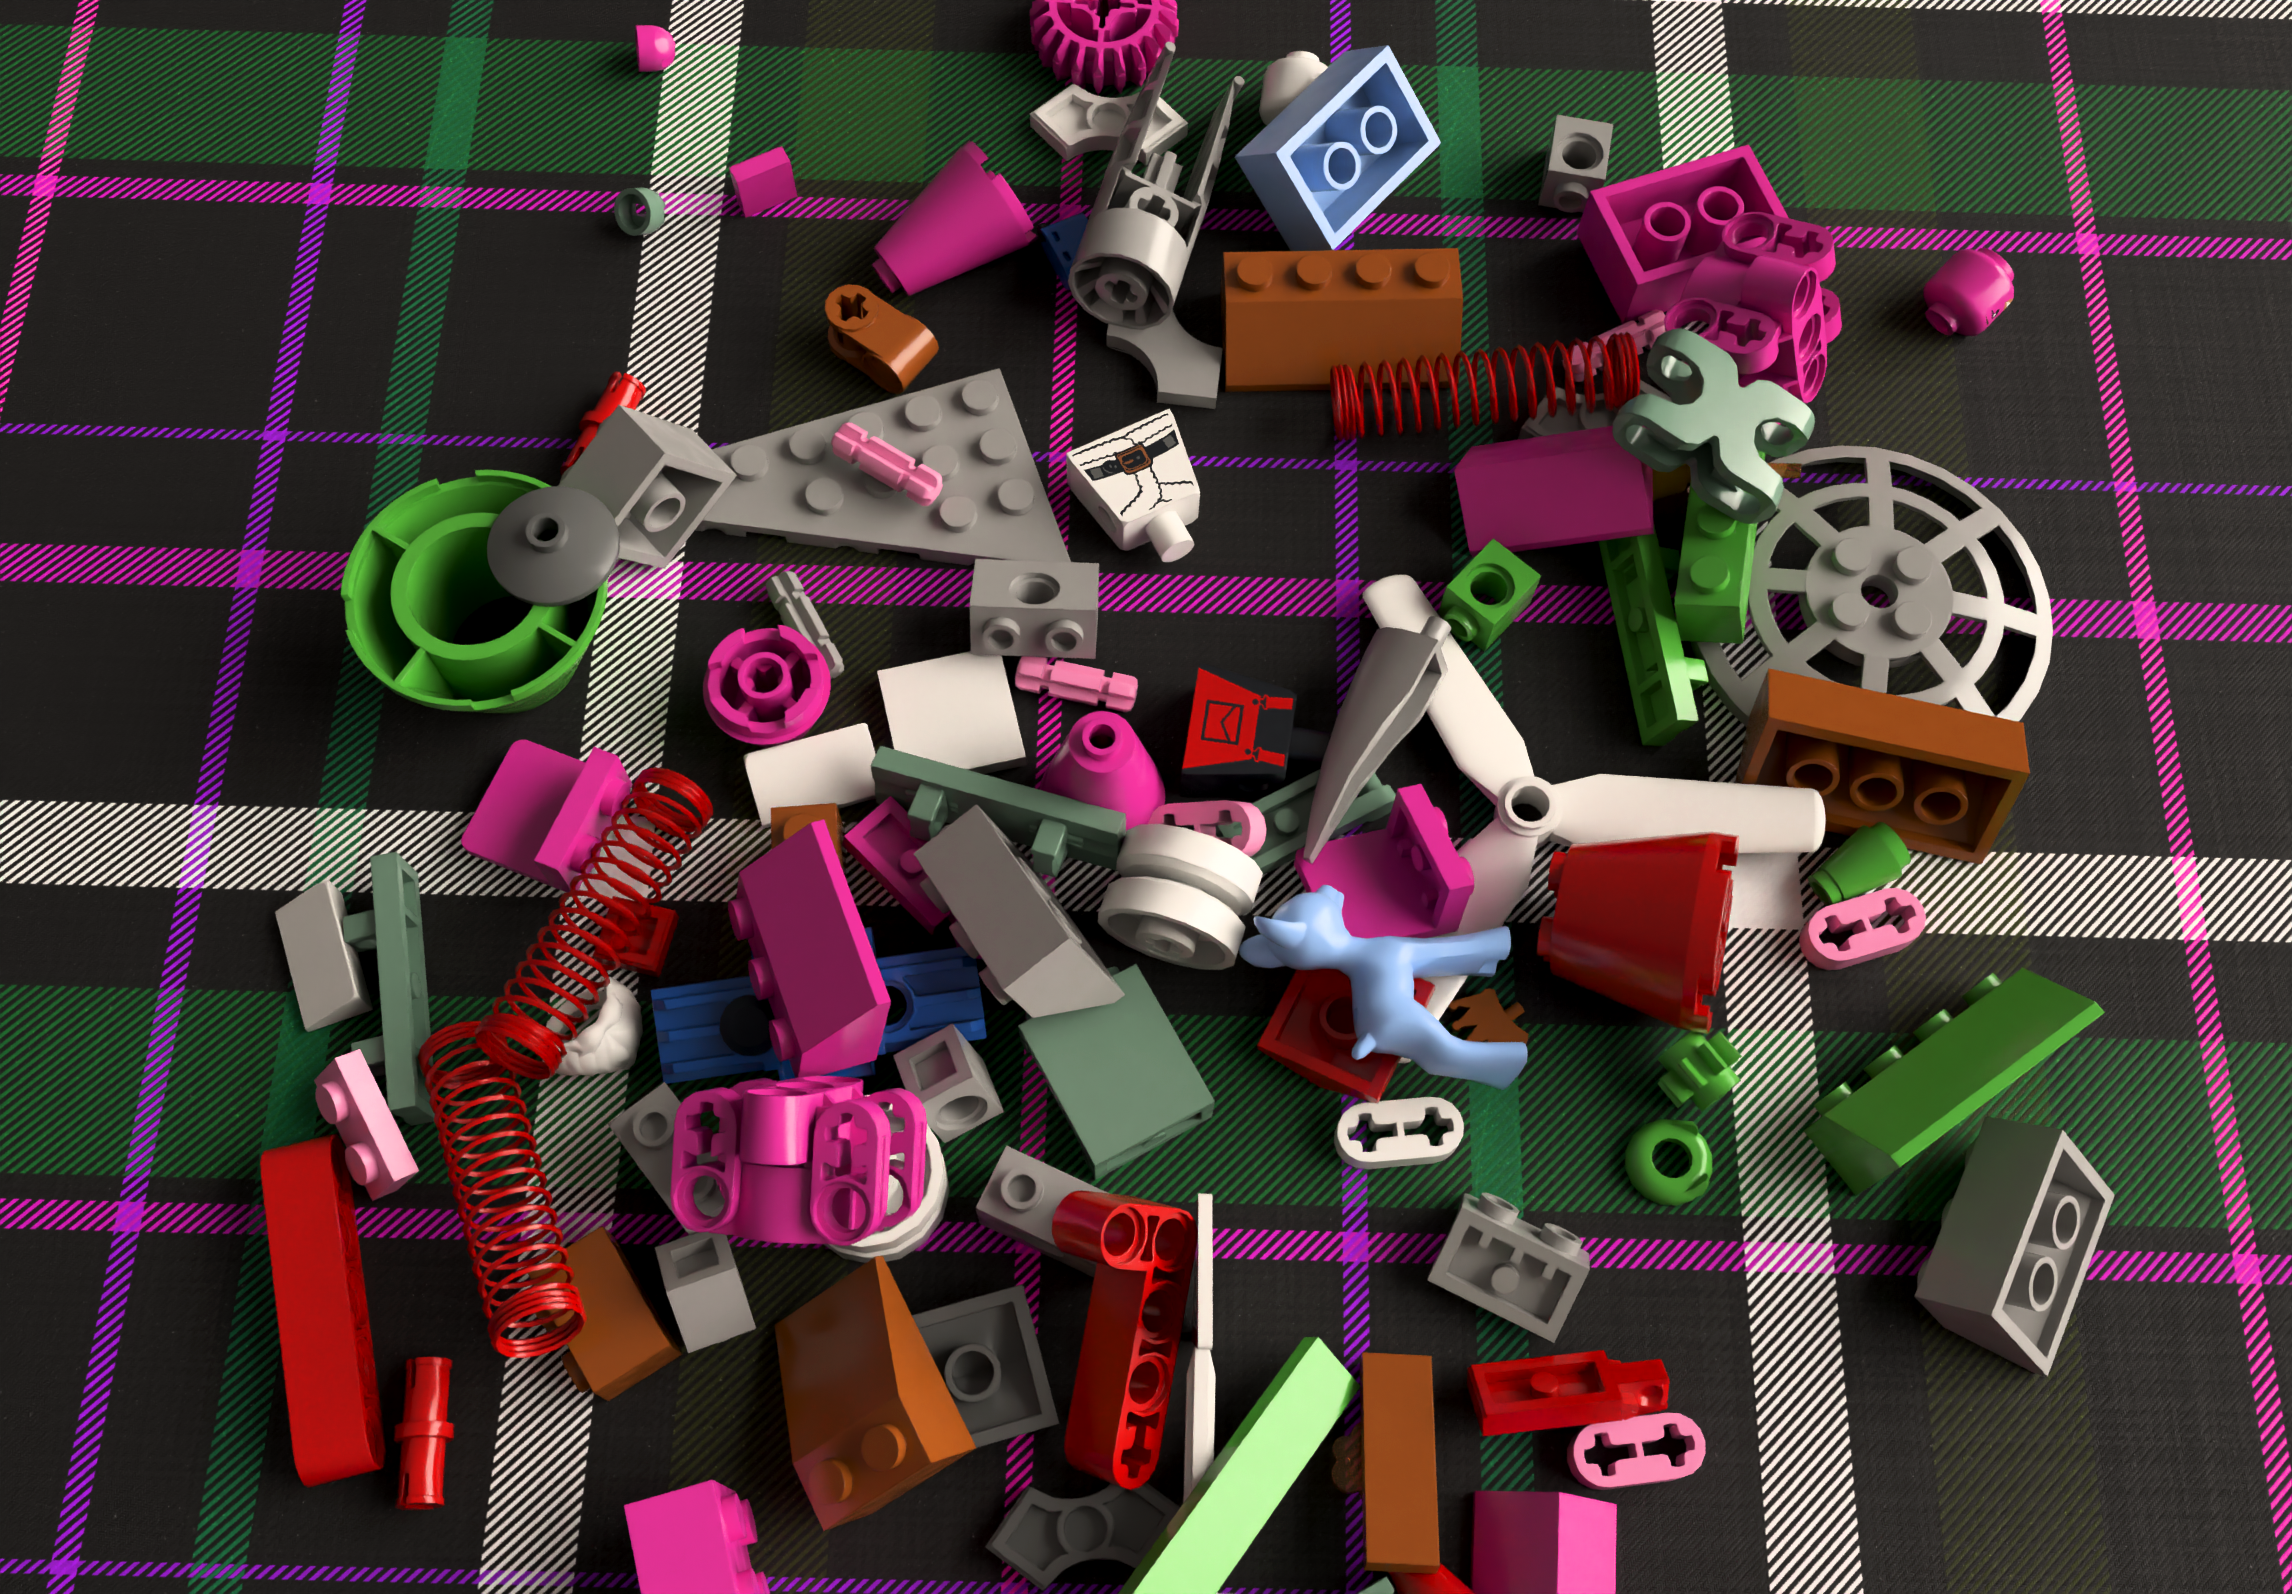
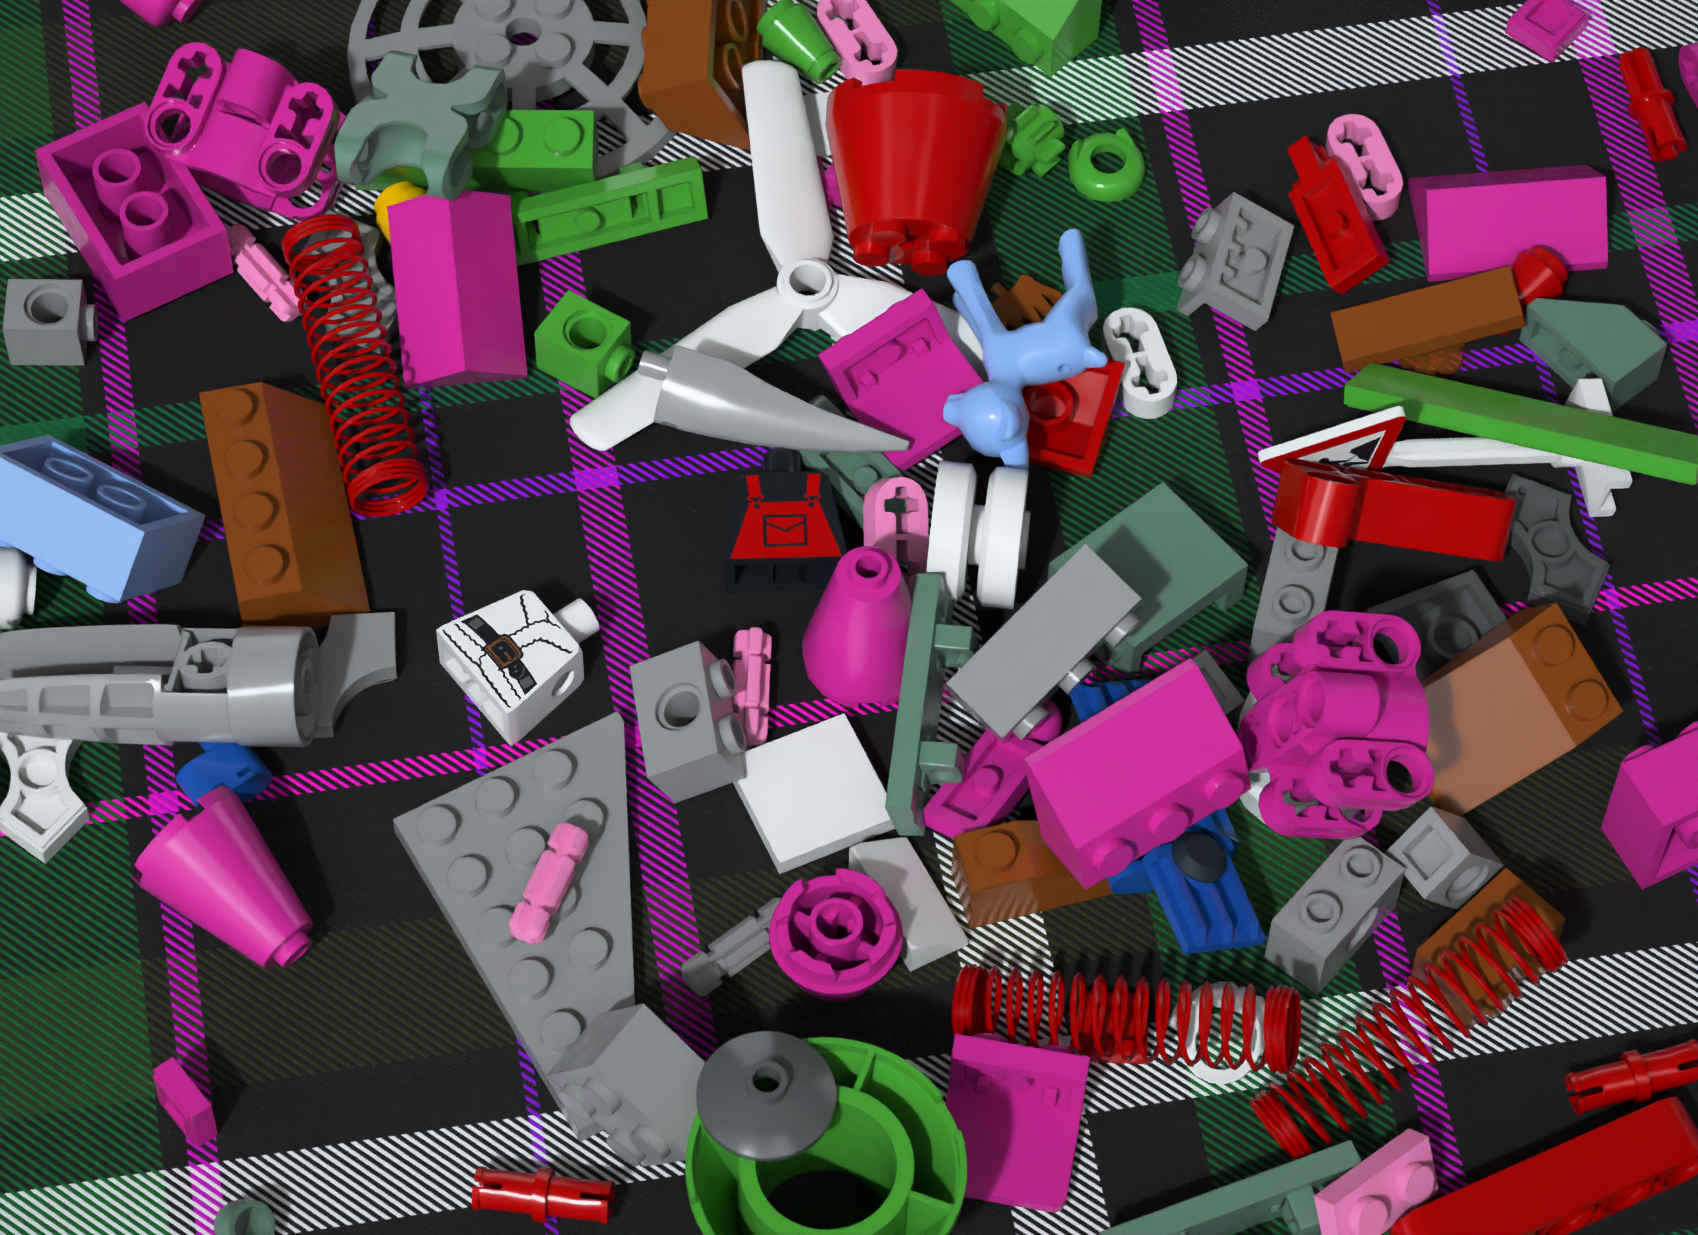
camera: 100 degrees left, 10 degrees down
(877, 337) = (380, 942): dark orange piece -> none

